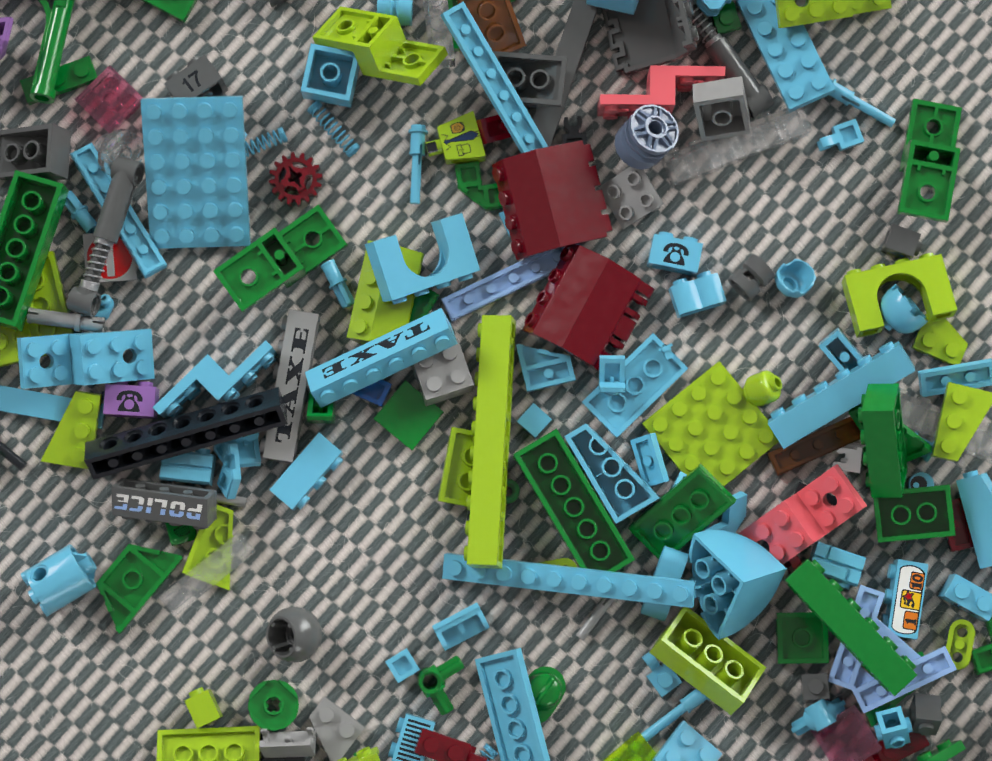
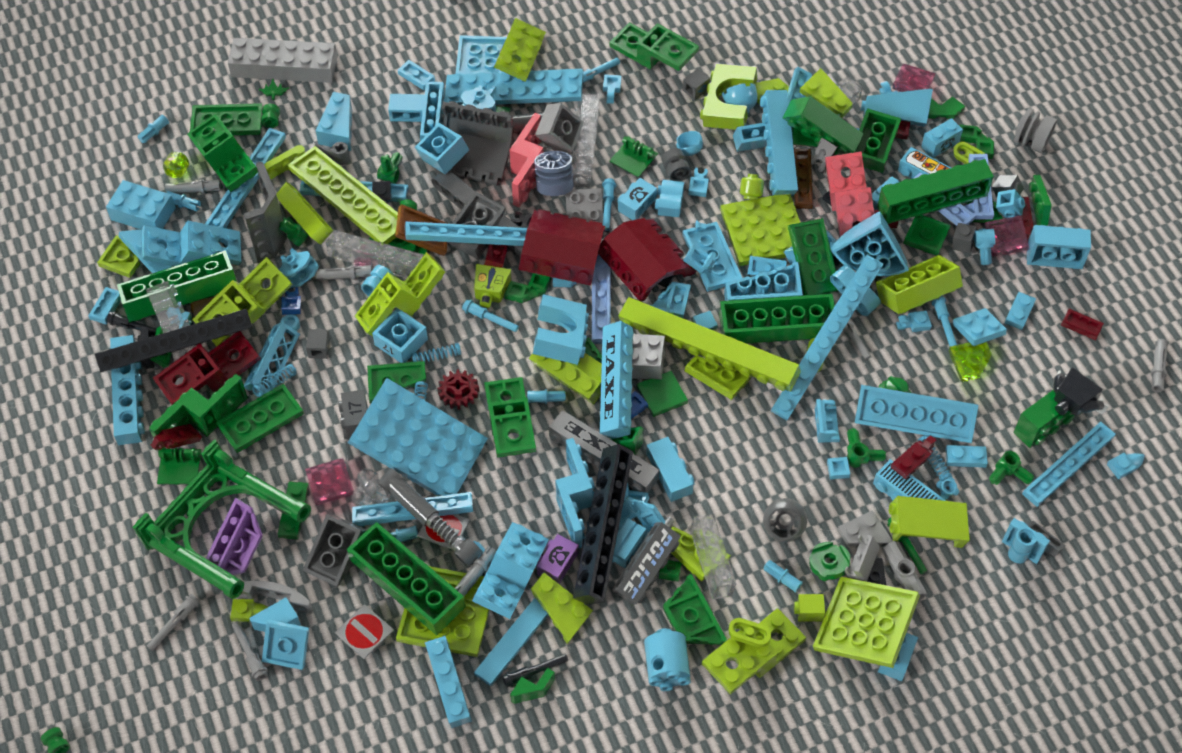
camera: 60 degrees left, 25 degrees down
(116, 658) = (750, 631): none -> lime plate
(117, 668) = (752, 659): none -> lime bracket
(231, 660) = (782, 576): none -> medium azure axle
(276, 97) = (403, 374): none -> green wing
(663, 216) = (608, 195): none -> medium azure pin
(737, 320) = (698, 184): none -> medium azure plate
(742, 218) = (633, 156): none -> green hinge

